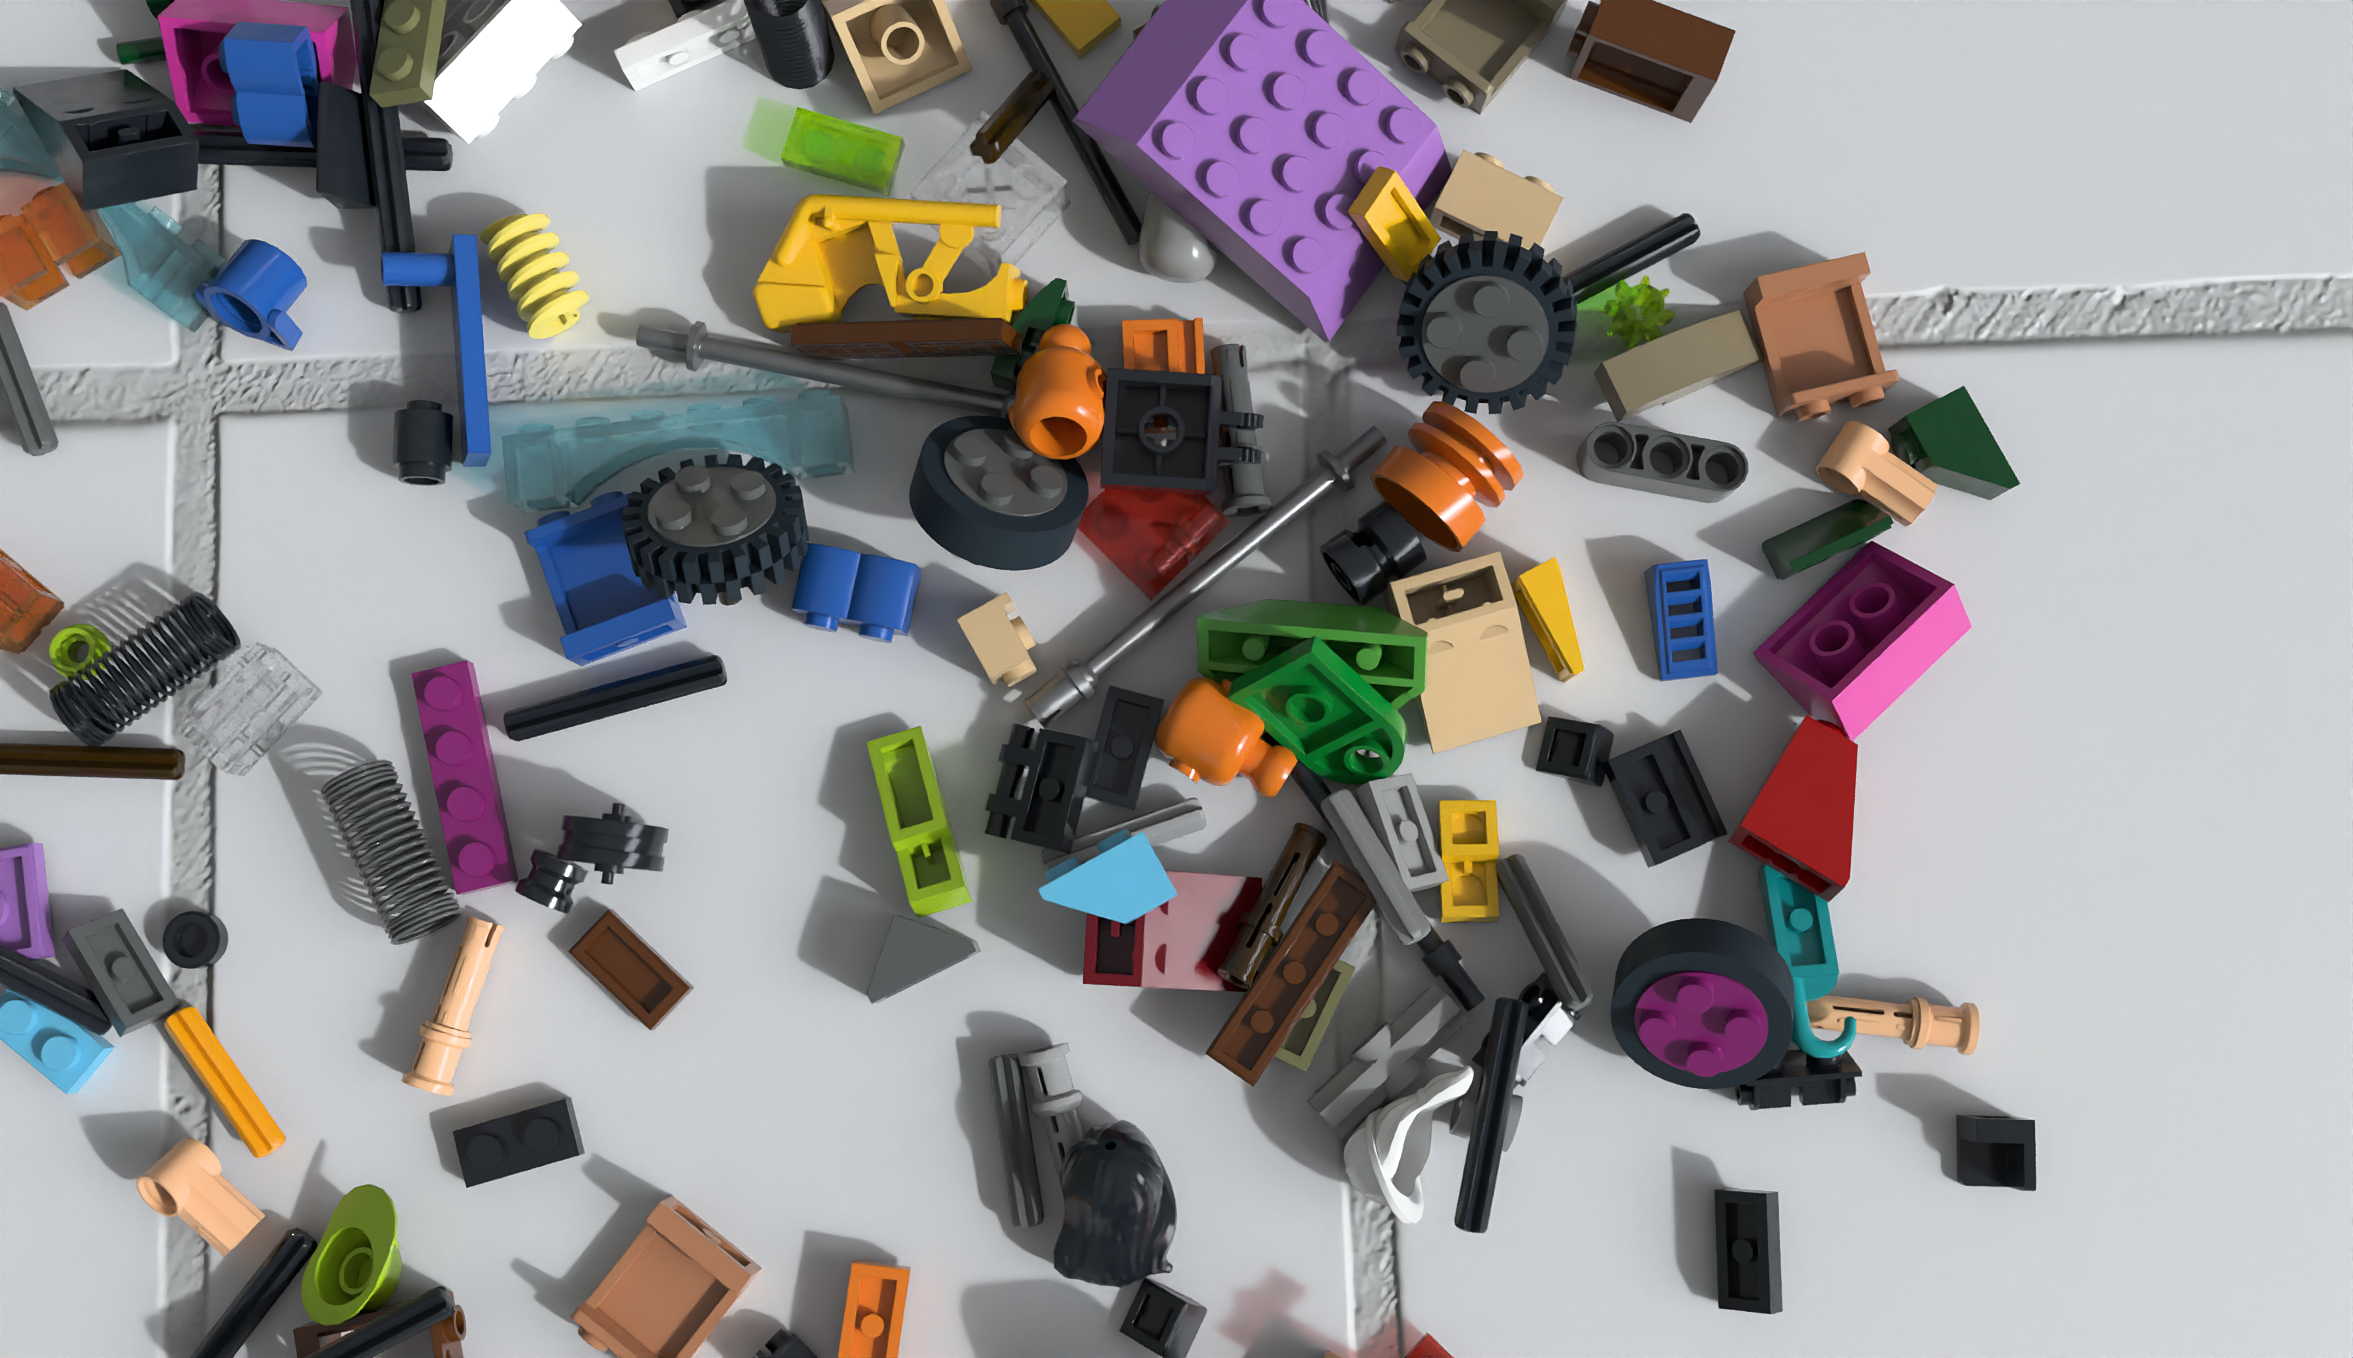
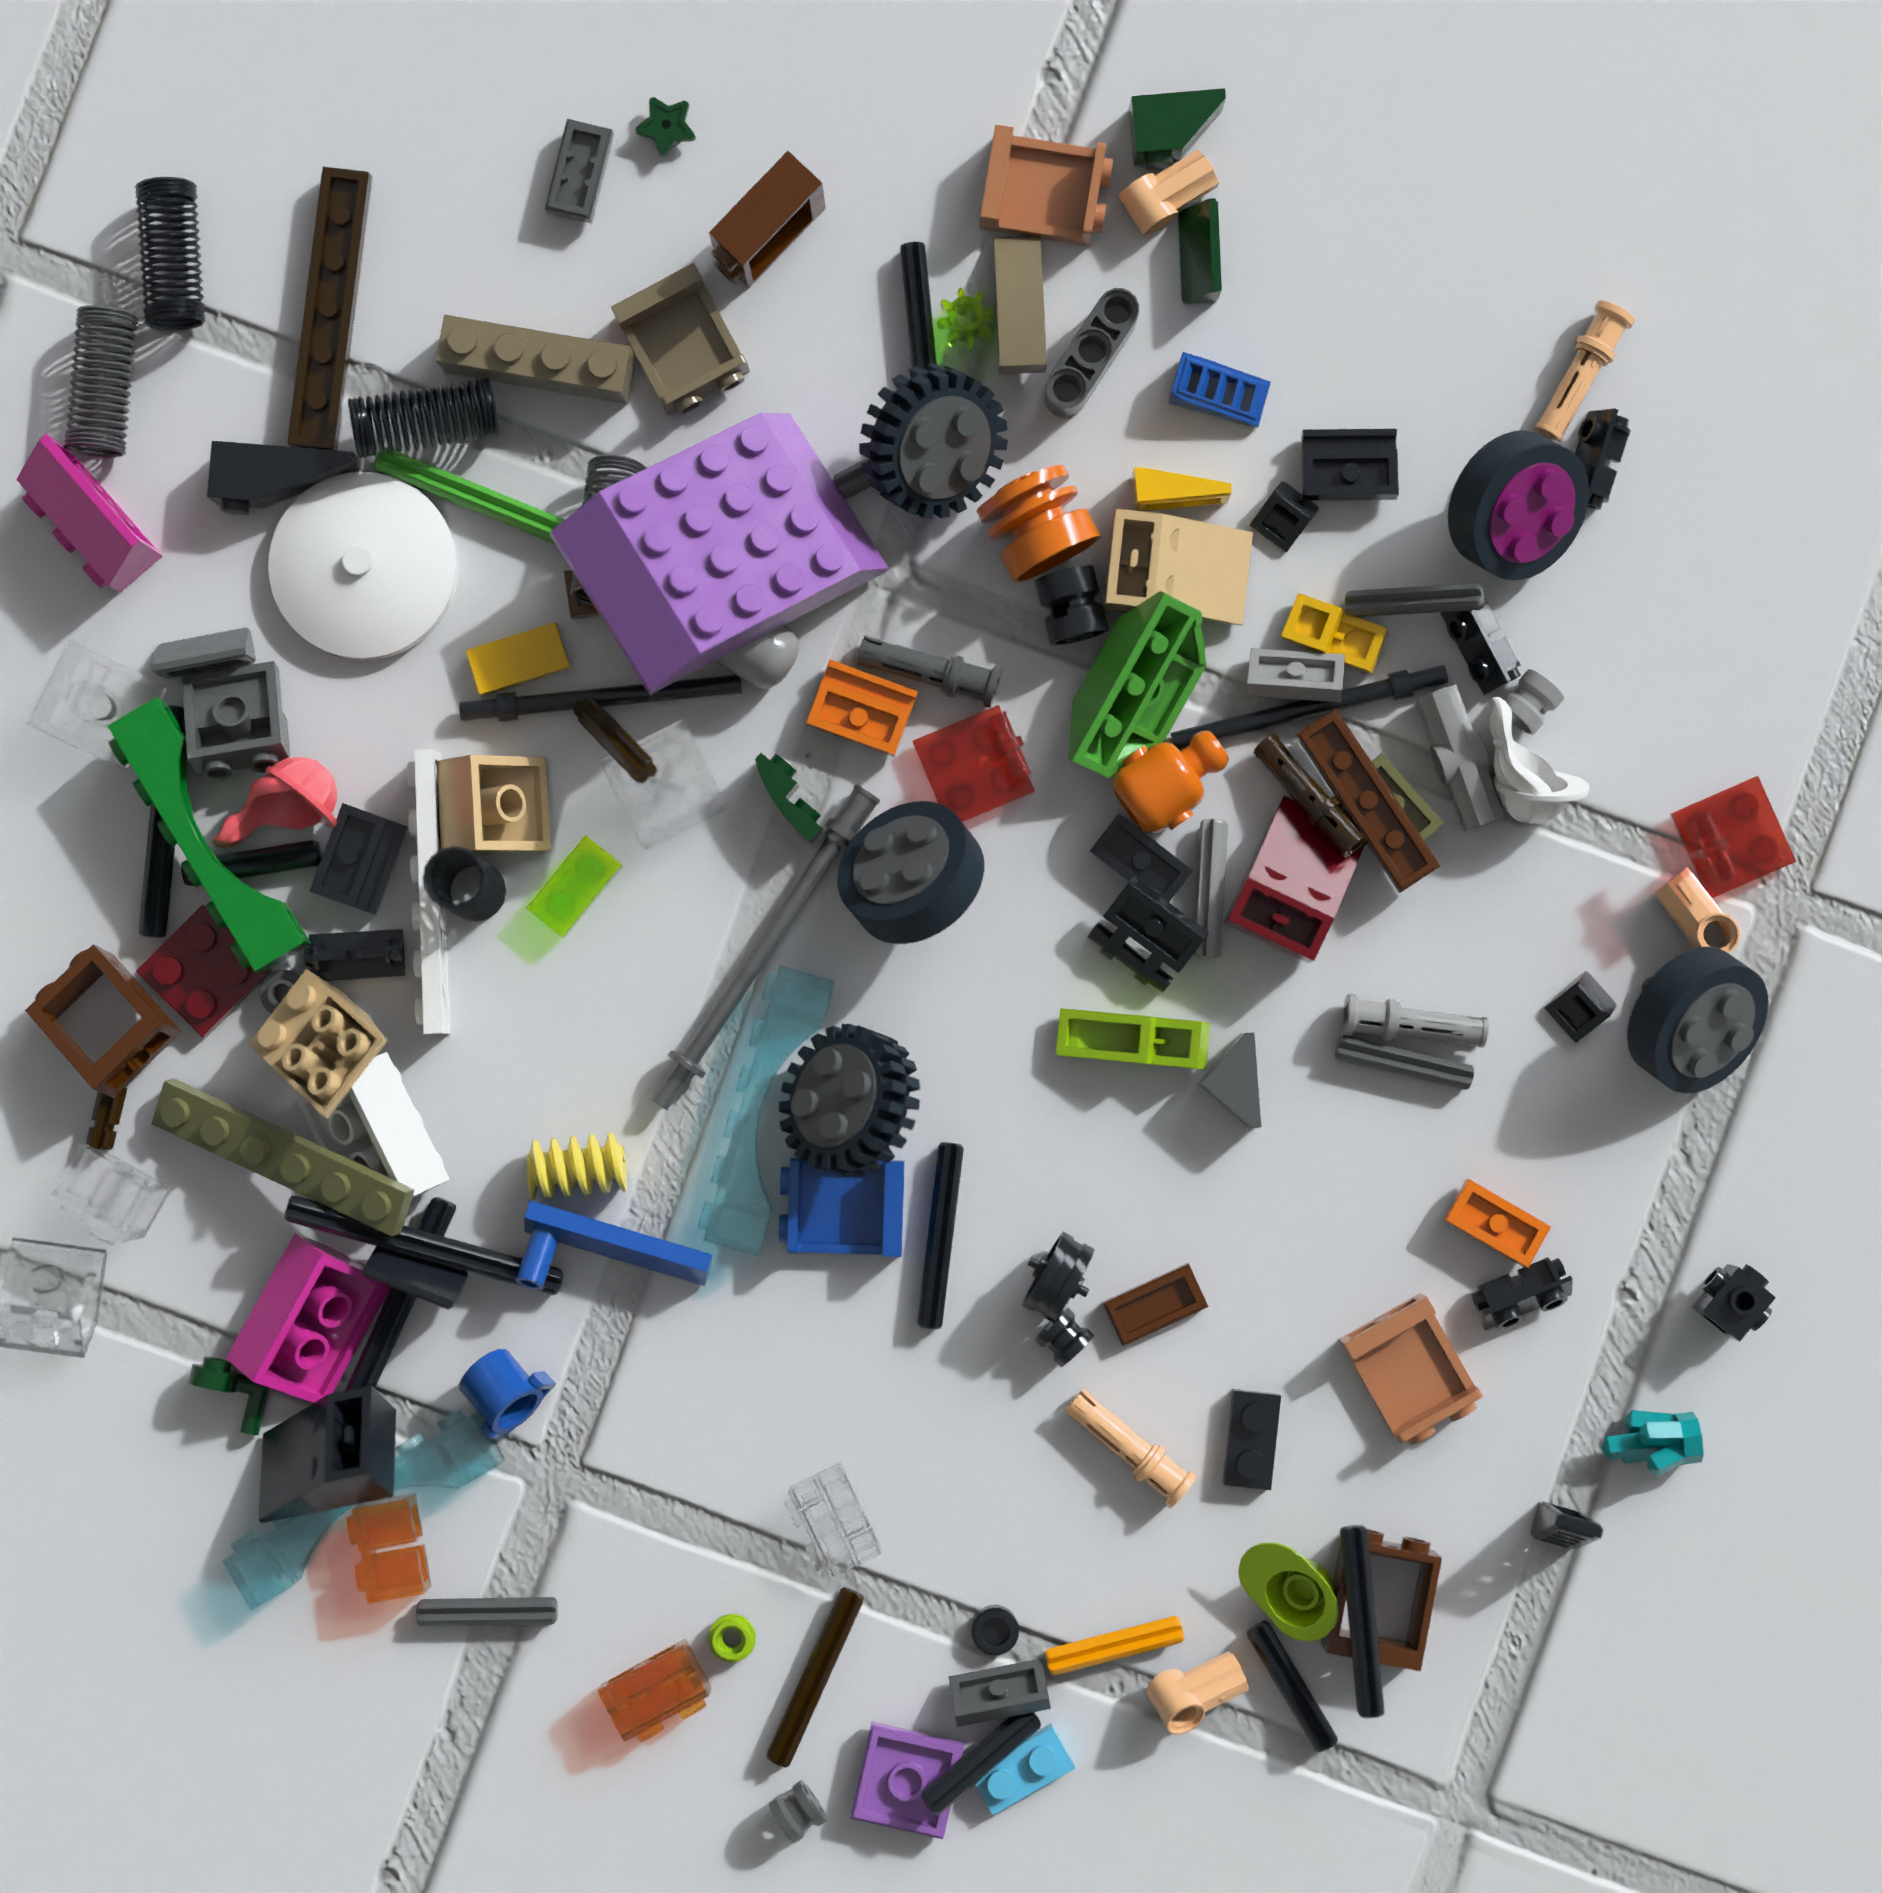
camera: 65 degrees left, 5 degrees up
(96, 730) = (764, 1596): black piece -> none
(273, 83) = (344, 1311): blue brick -> none
(419, 916) = (937, 1460): dark grey piece -> none
(422, 443) = (677, 1307): black brick -> none
(464, 778) = (954, 1376): magenta plate -> none
(849, 243) = (657, 911): yellow piece -> none
(856, 591) = (936, 1014): blue brick -> none
(907, 338) = (756, 895): reddish brown tile -> none
(999, 641) = (1021, 920): tan brick -> none
(1060, 396) = (856, 793): orange piece -> none
(1081, 676) = (1072, 870): flat silver bar -> none
(1115, 884) = (1253, 904): medium azure slope -> none
(1115, 1208) = (1486, 1006): black piece -> none
(1190, 409) = (944, 717): black hinge -> none
(1324, 713) = (1184, 695): green plate -> none
(1375, 867) = (1314, 705): light grey axle -> none
(1394, 223) = (826, 479): yellow tile -> none
(1490, 198) = (836, 392): tan brick -> none
(1491, 1115) = (1534, 697): black axle -> none
(1748, 1250) = (1708, 550): black plate -> none
(1804, 938) = (1498, 407): teal plate -> none
(1806, 810) = (1403, 363): red slope -> none
(1864, 638) = (1291, 259): dark pink slope -> none
(1996, 1151) = (1712, 333): black panel -> none

